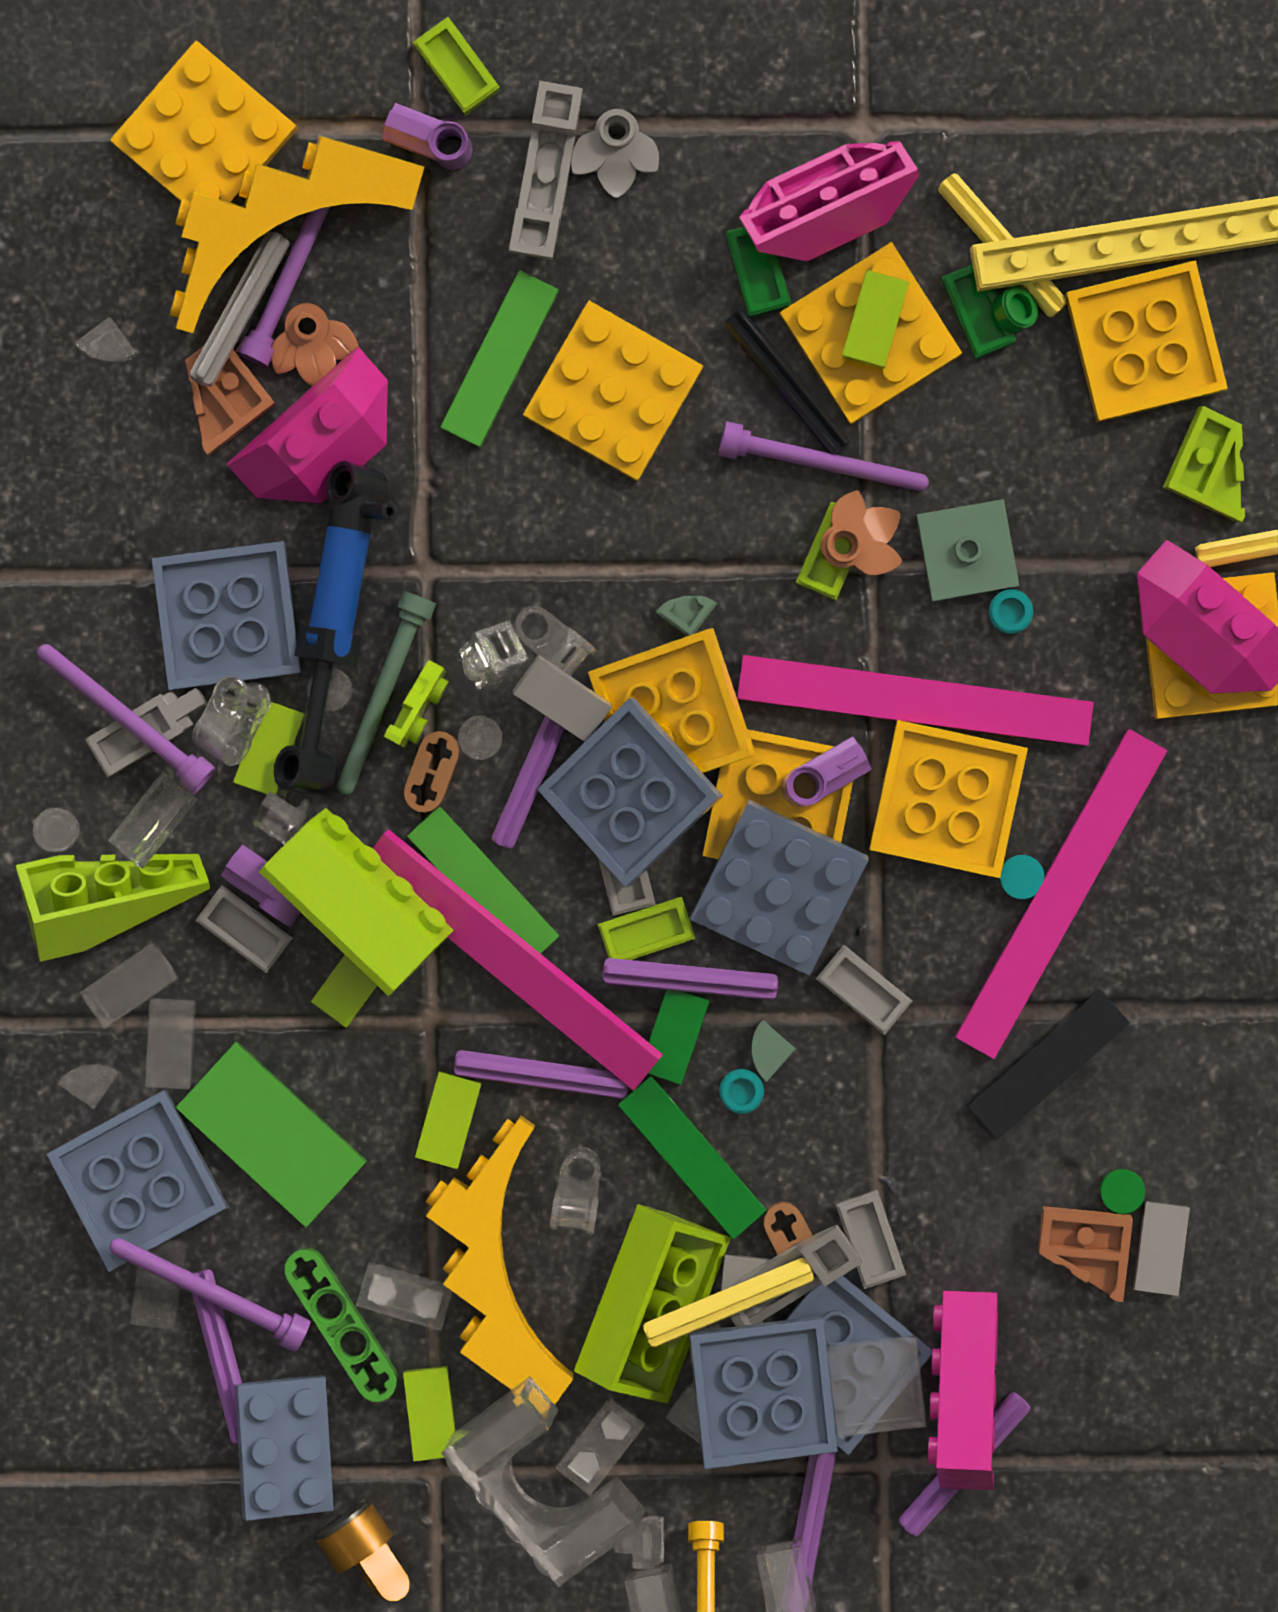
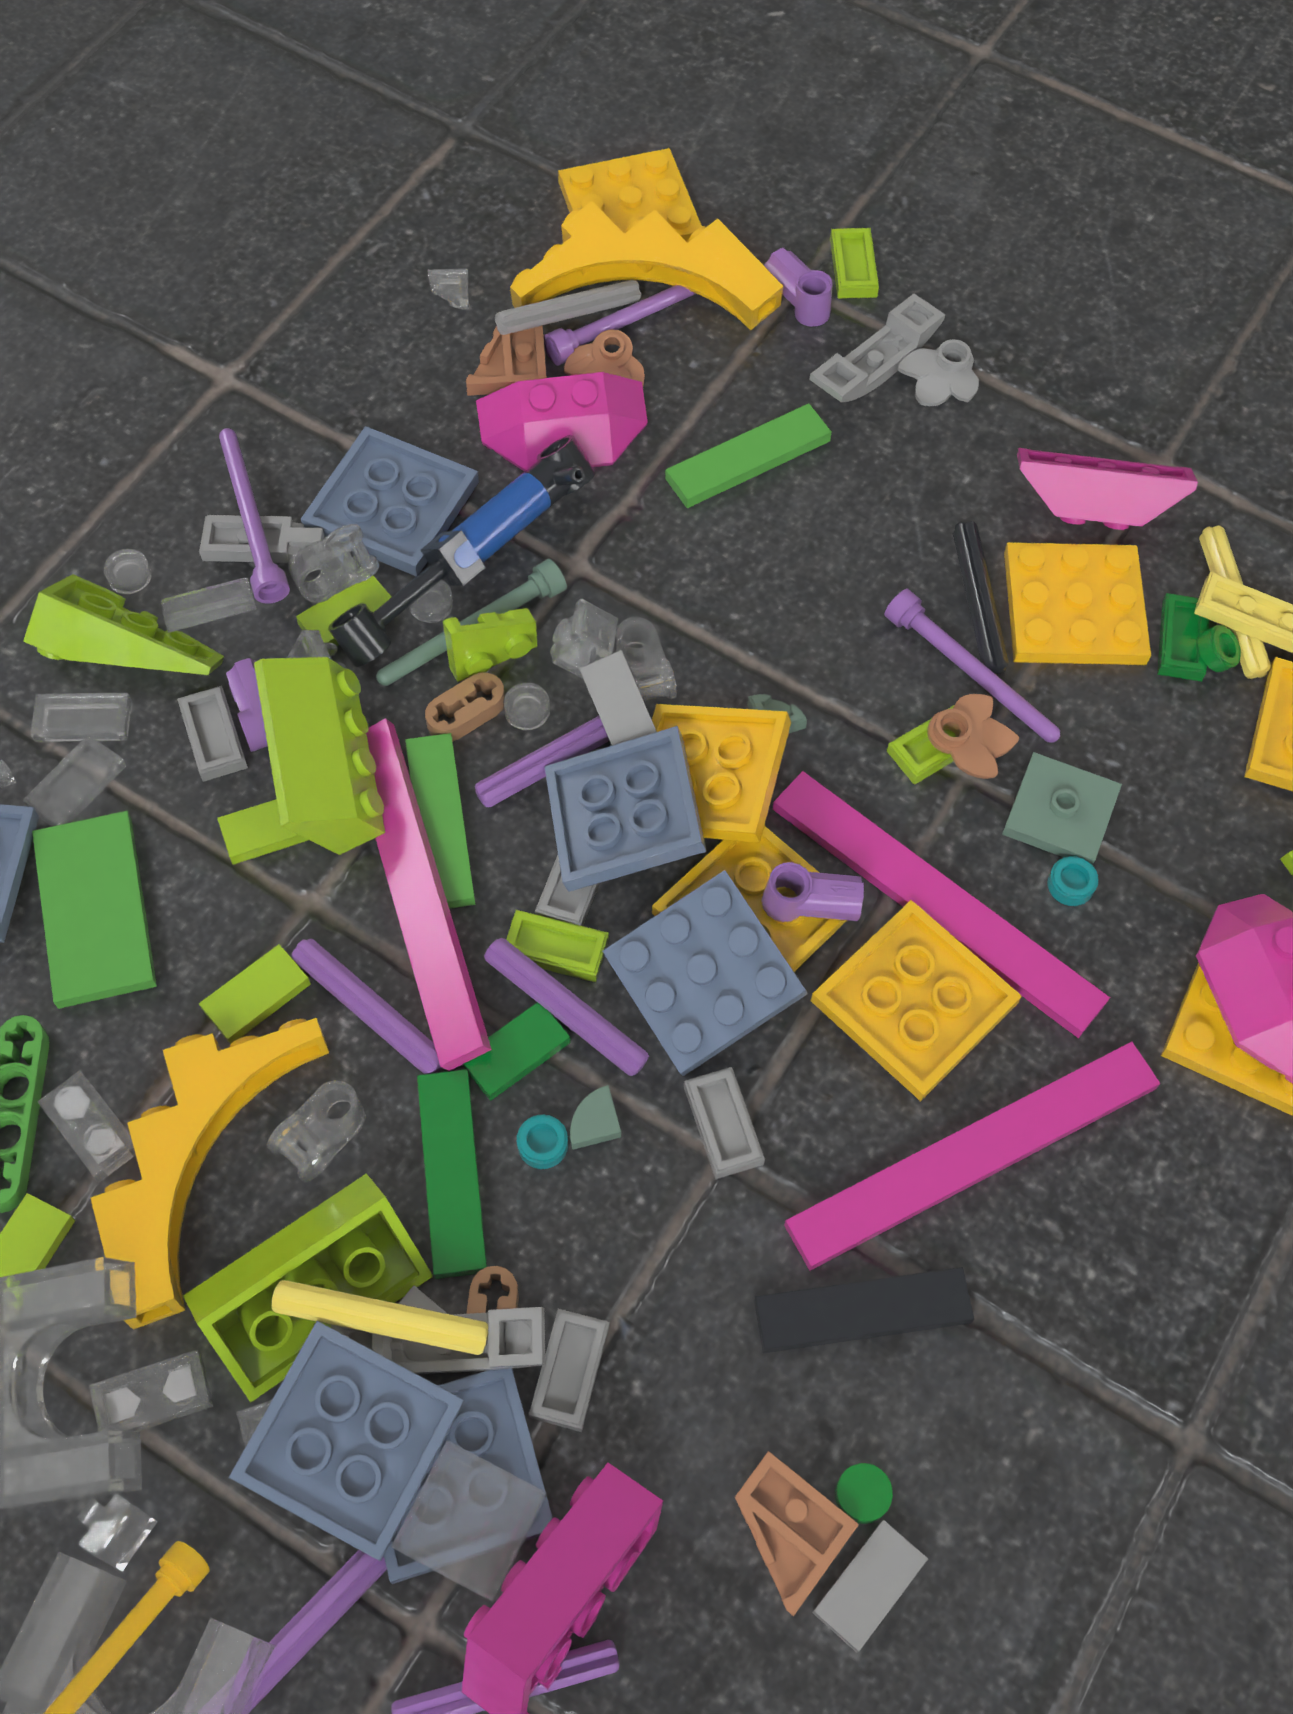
camera: 30 degrees right, 25 degrees down
(613, 391) = (826, 526): yellow plate -> none
(757, 275) = (1006, 509): green tile -> none
(875, 319) = (1089, 581): lime tile -> none
(1021, 876) = (944, 1112): teal tile -> none

